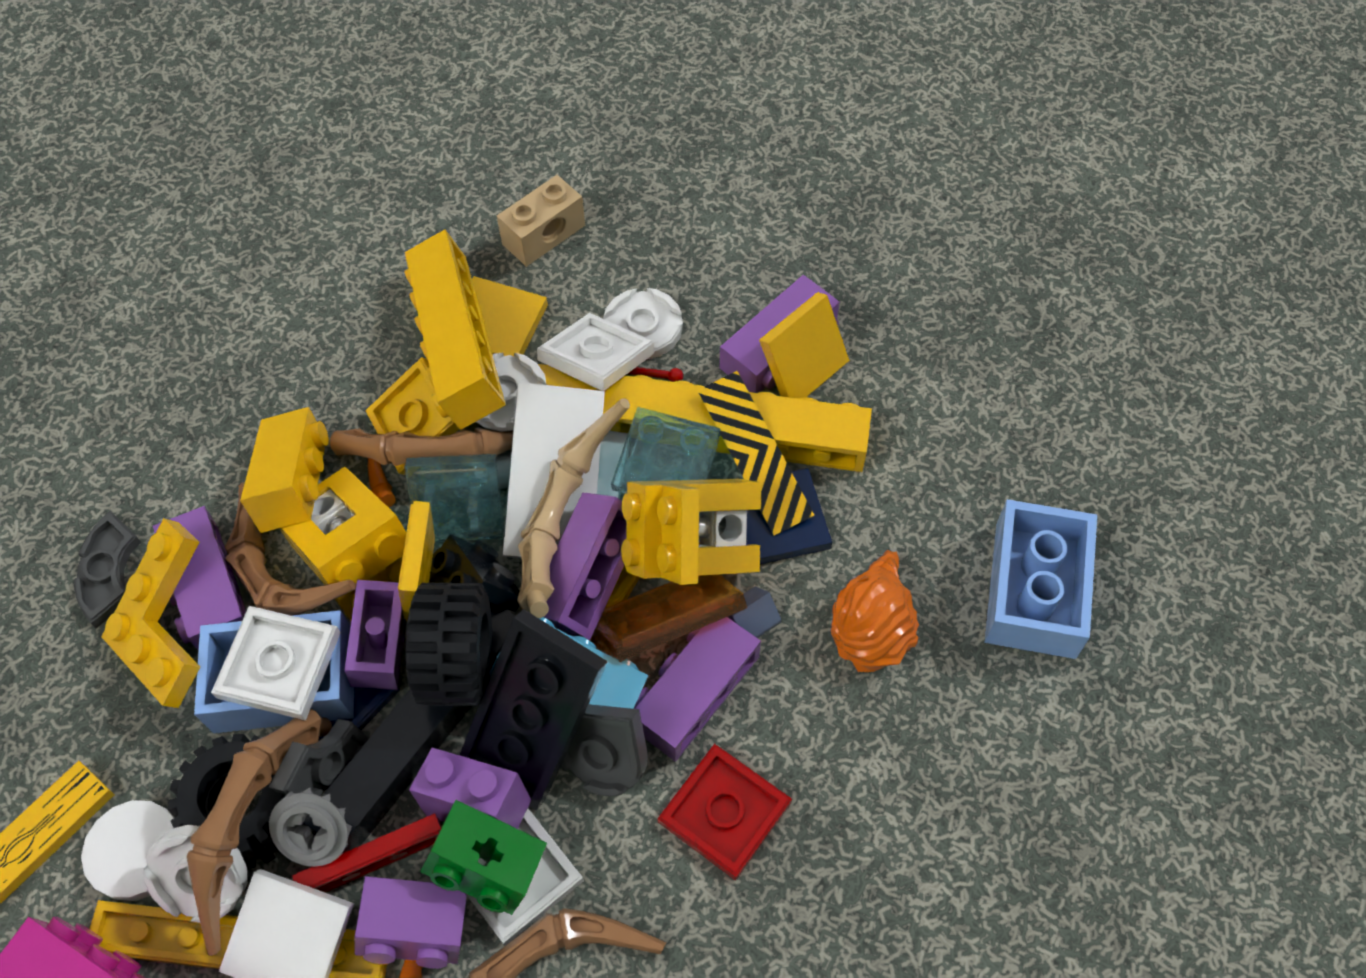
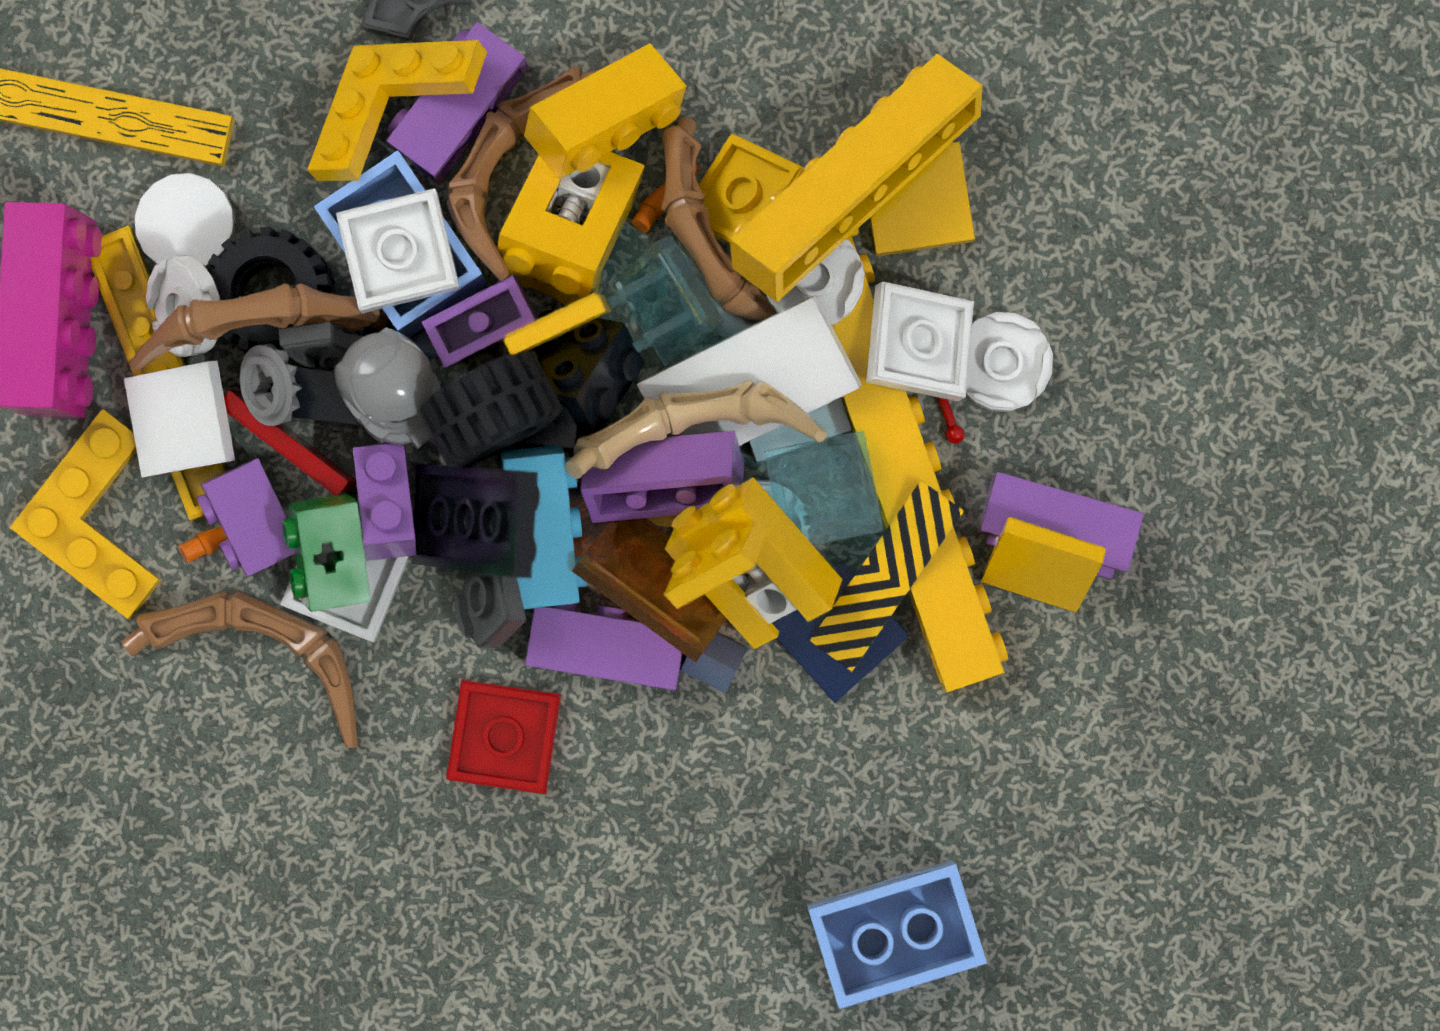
camera: 65 degrees right, 25 degrees up
(372, 712) = (386, 382): none -> light grey helmet
(541, 220) = (1071, 174): tan brick -> none
(875, 617) = (773, 785): orange hair -> none

